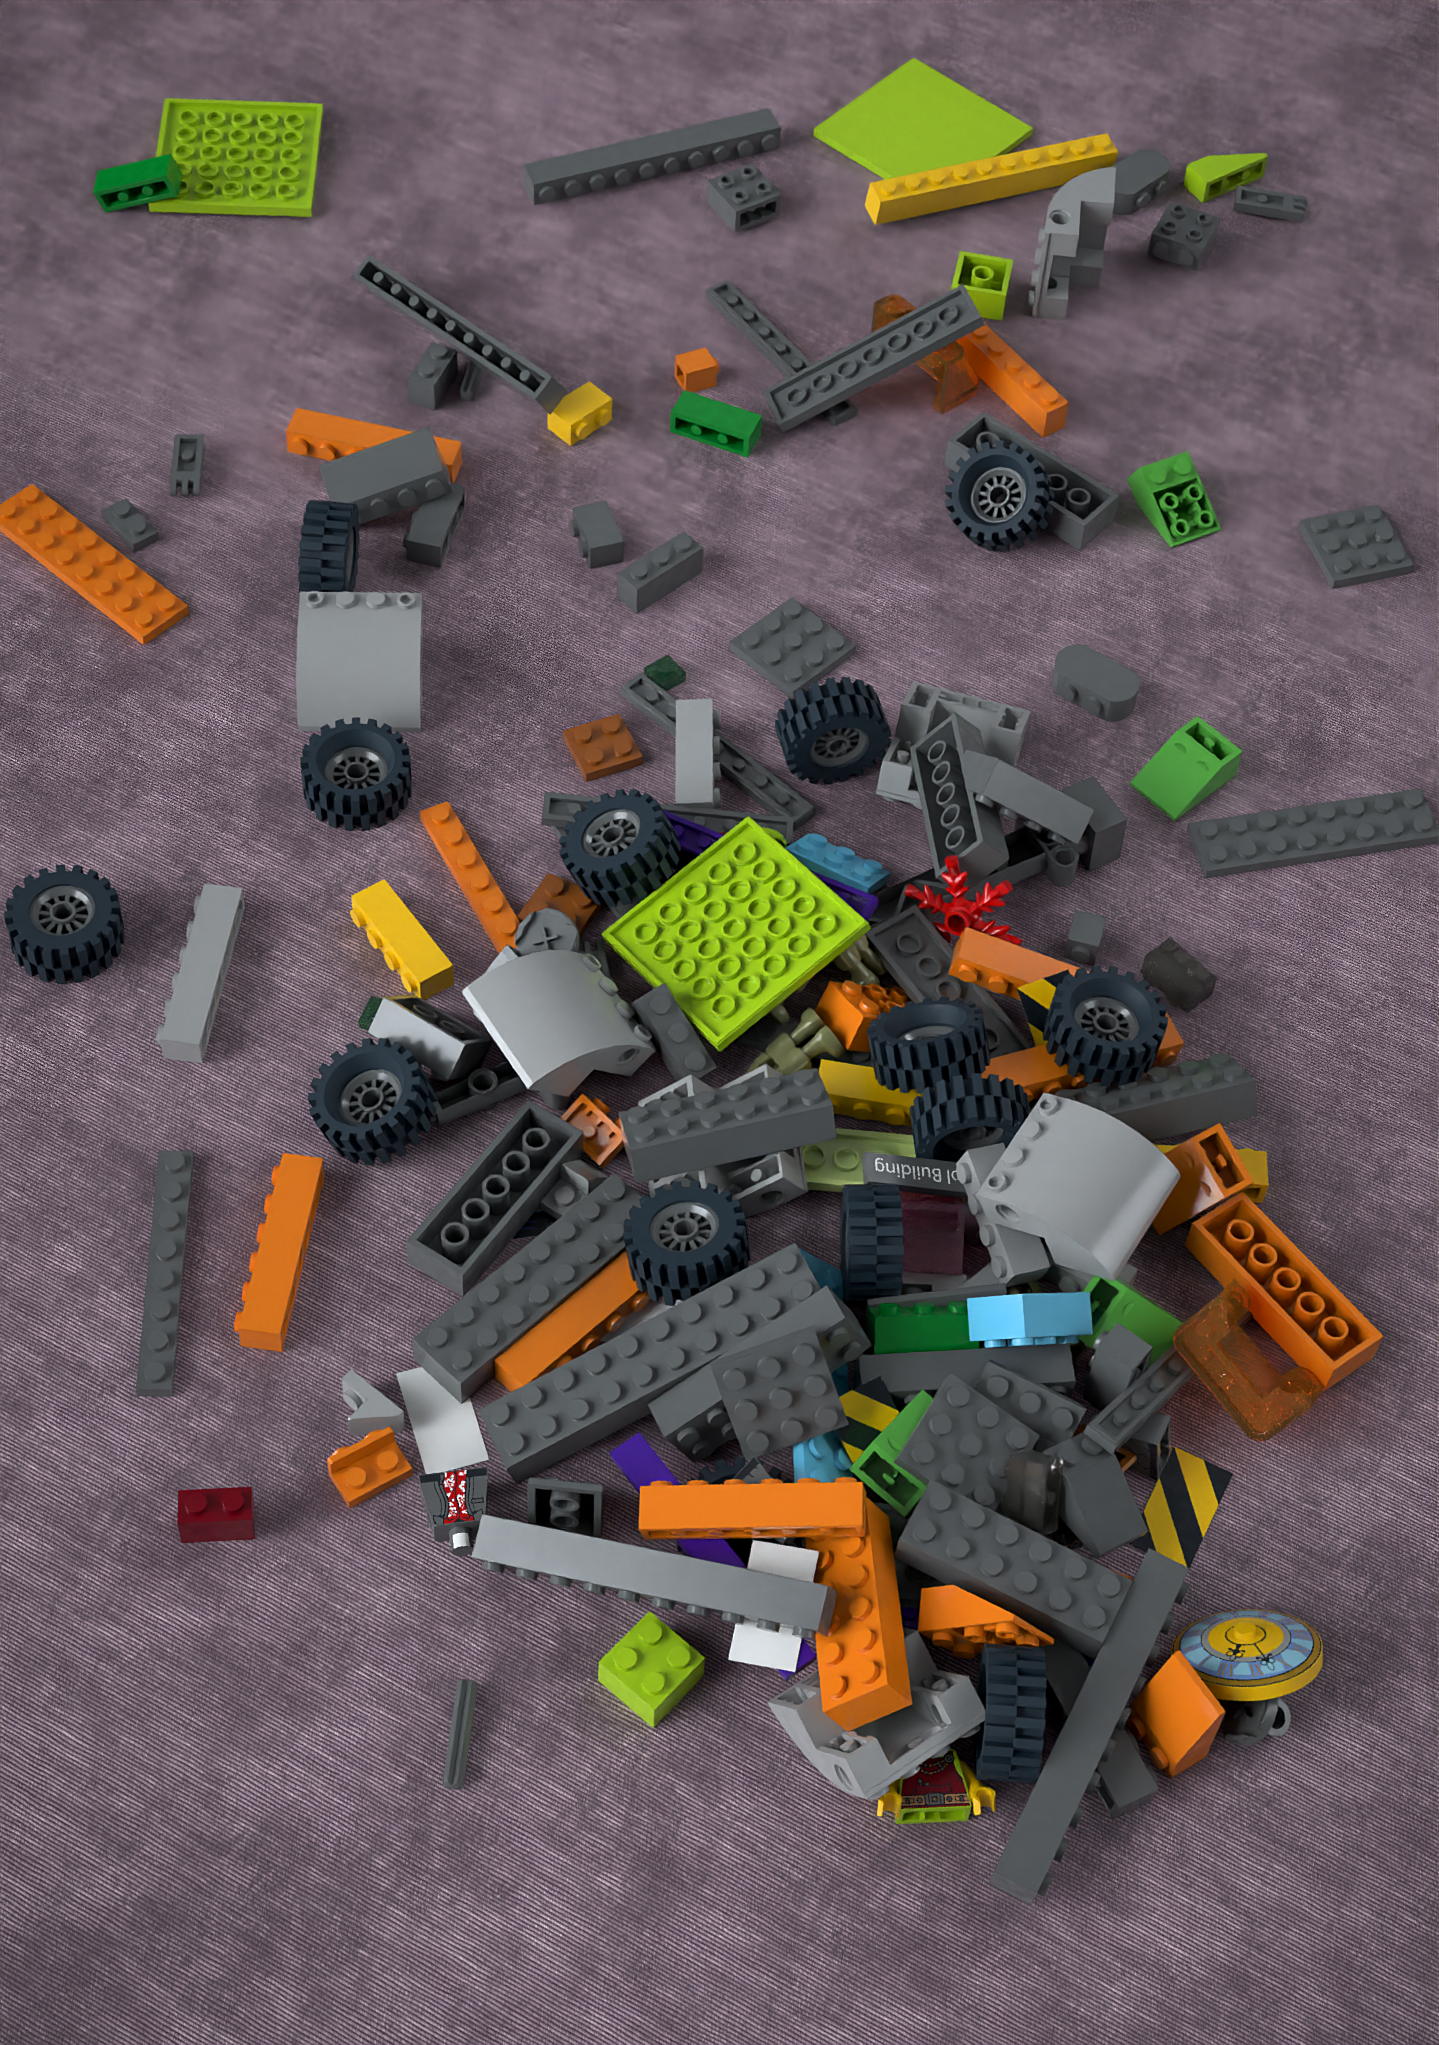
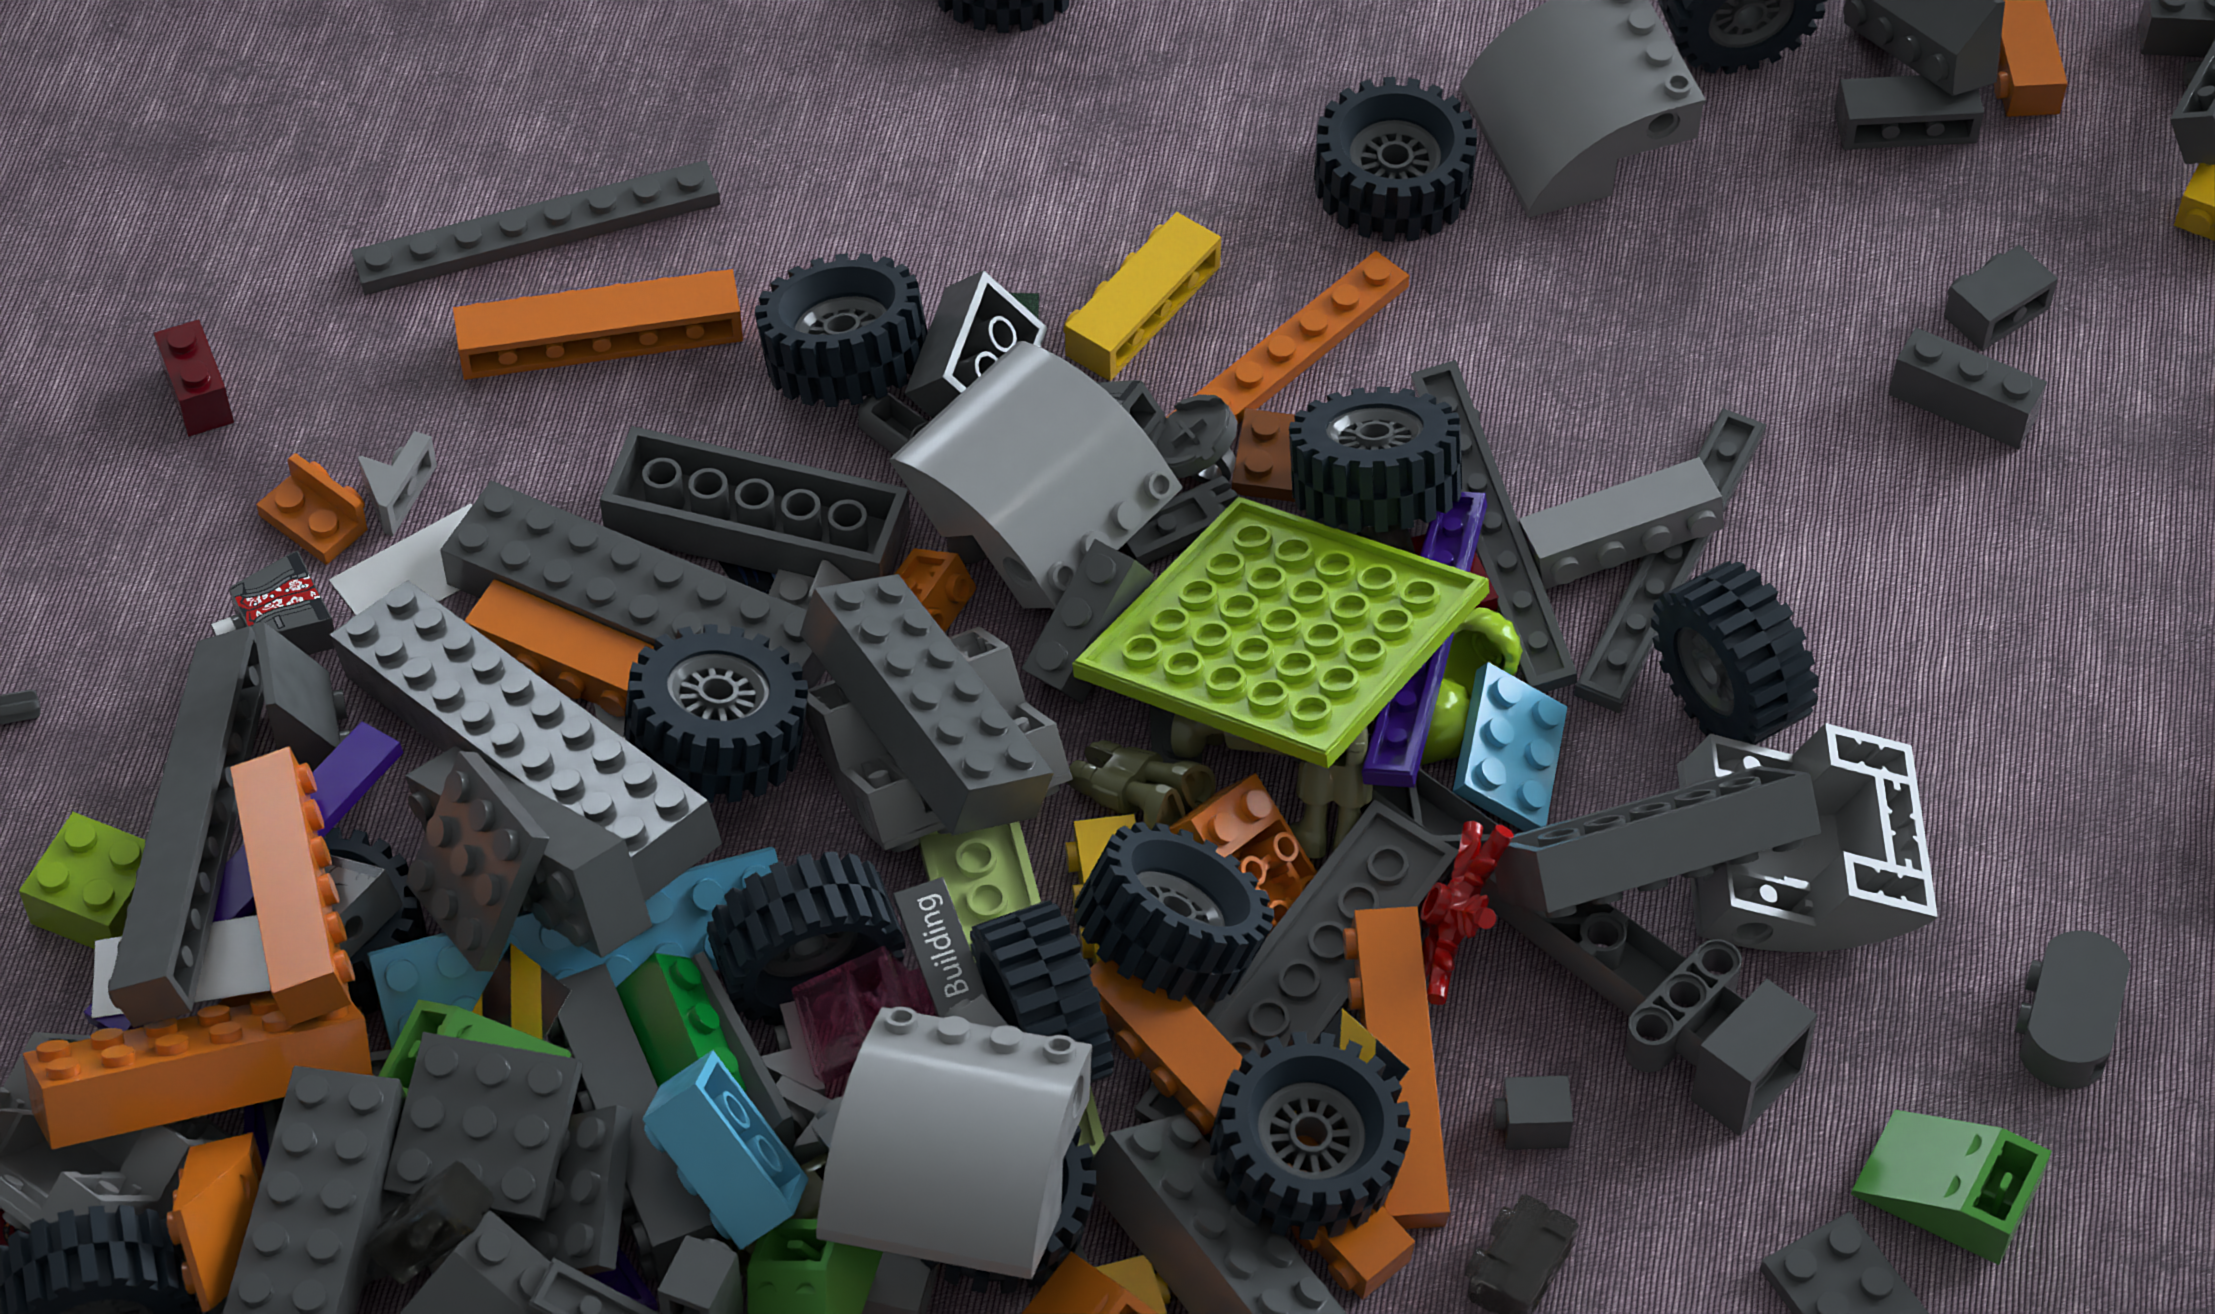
camera: 75 degrees right, 0 degrees up
(201, 973) = (997, 112): light grey brick -> none
(602, 747) = (1604, 422): dark orange plate -> none
(665, 673) = (1784, 455): clear green plate -> none
(792, 647) = (1925, 596): dark grey plate -> none
(1025, 798) = (1684, 905): dark grey slope -> none

